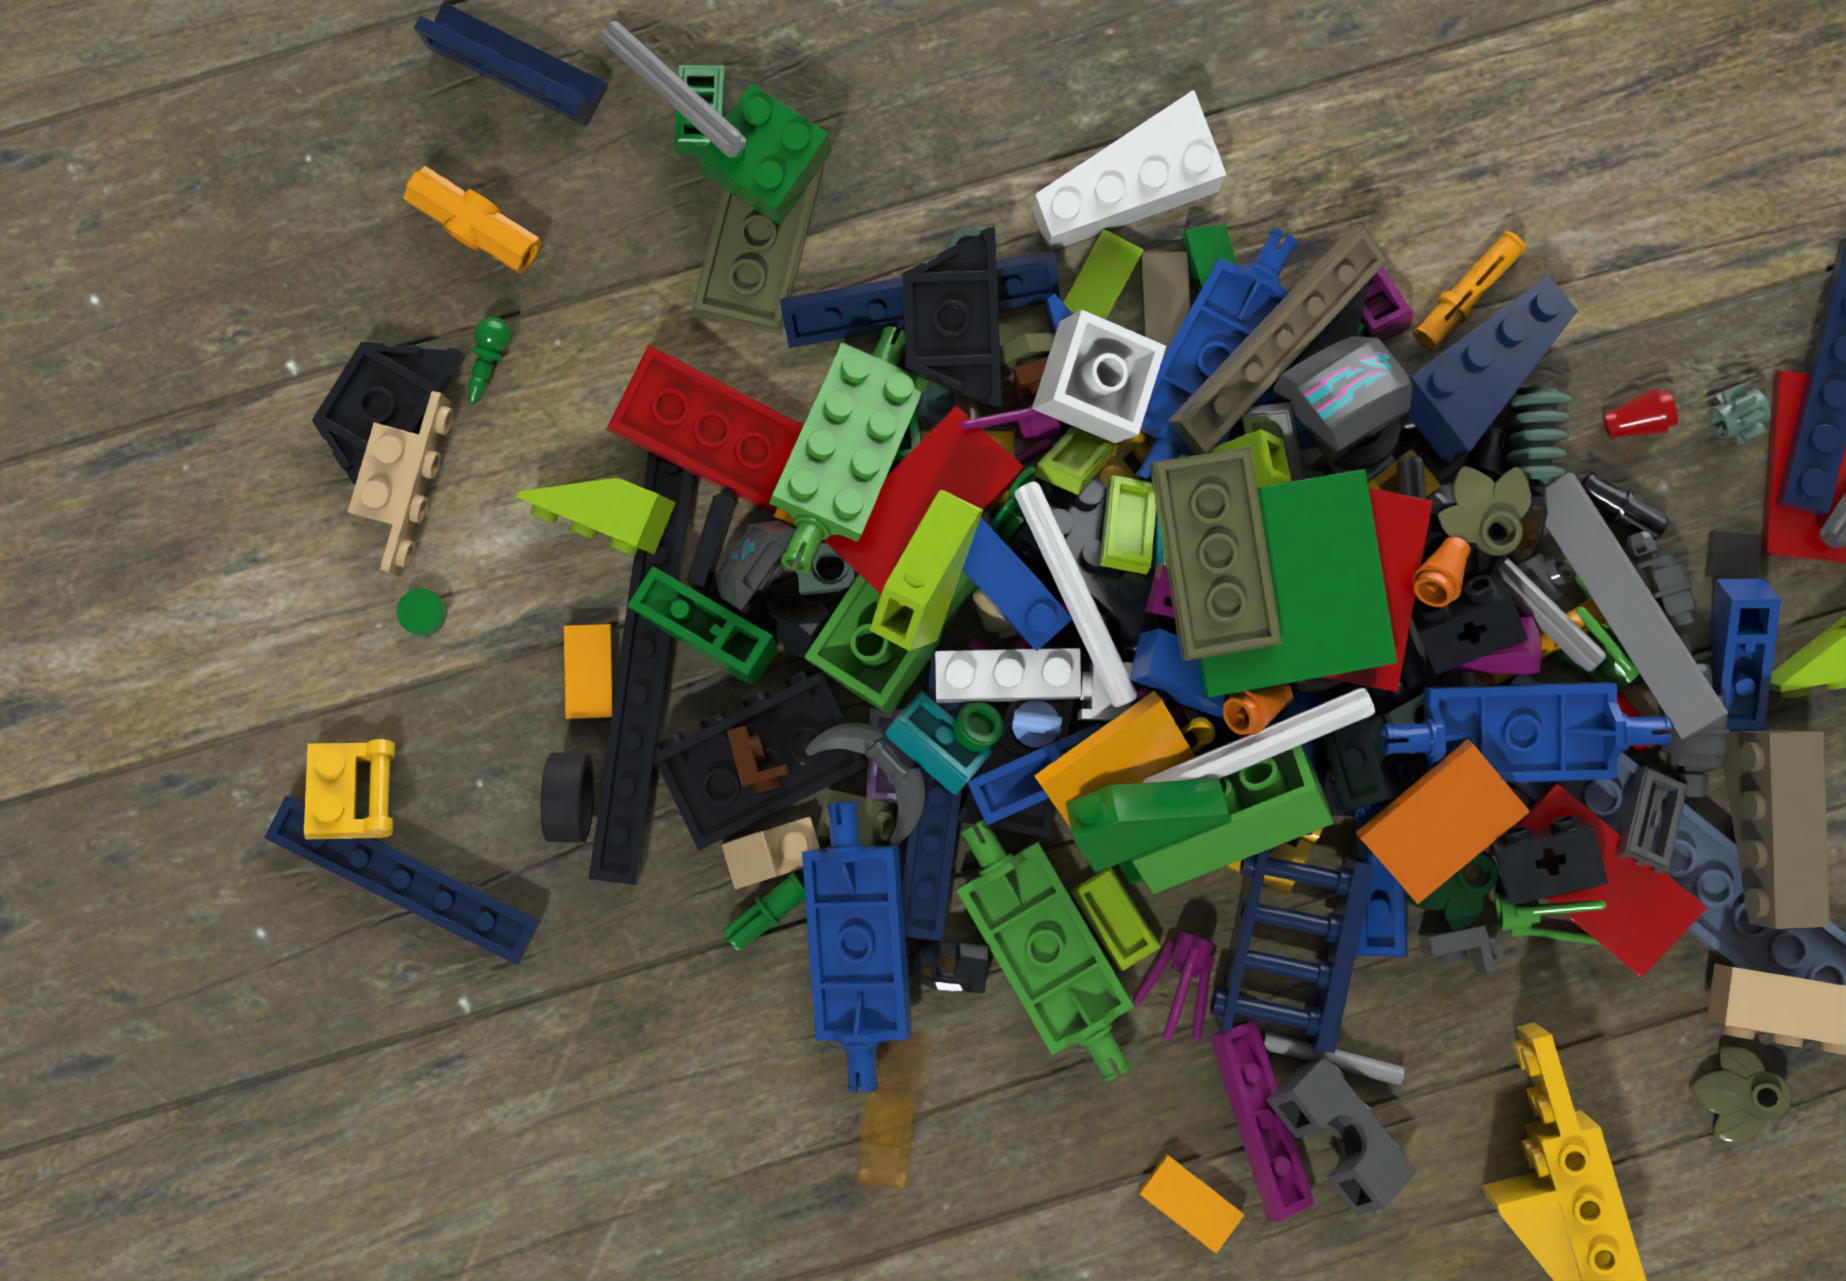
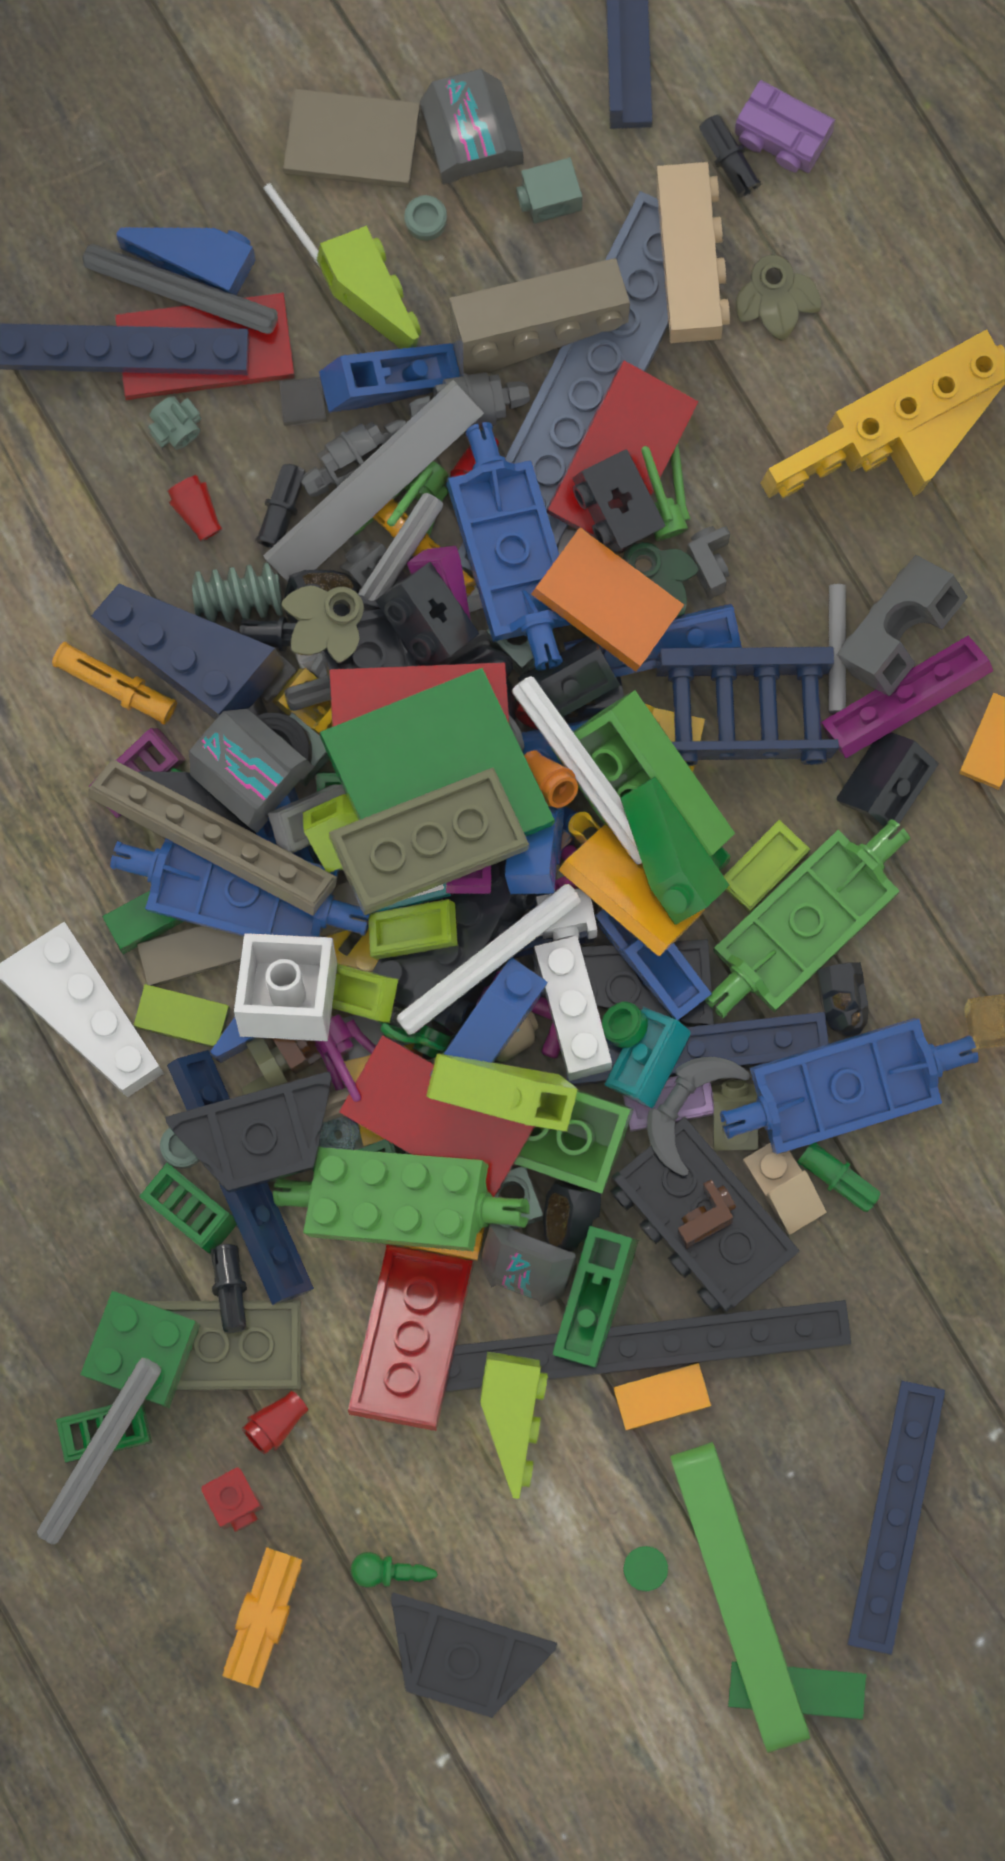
camera: 100 degrees left, 5 degrees down
(260, 734) = (817, 1690): none -> green tile
(333, 790) = (831, 1600): yellow plate -> none
(362, 698) = (740, 1597): none -> bright green beam
(396, 477) = (527, 1623): tan bracket -> none
(512, 63) = (99, 1621): dark blue fence -> none
(567, 797) = (783, 1378): black tyre -> none
(591, 212) = (232, 1500): none -> red bracket
(662, 275) = (273, 1423): none -> red cone
(711, 542) = (515, 1312): black tile -> none
(808, 261) = (229, 1287): none -> black axle
(893, 266) = (215, 1232): none -> green slope
(1036, 723) = (609, 973): light blue plate -> none
(1176, 1076) = (888, 779): none -> black panel
(1190, 958) = (783, 788): magenta plant -> none
(1442, 574) = (392, 646): orange cone -> none
(1635, 814) = (557, 437): dark grey tile -> none

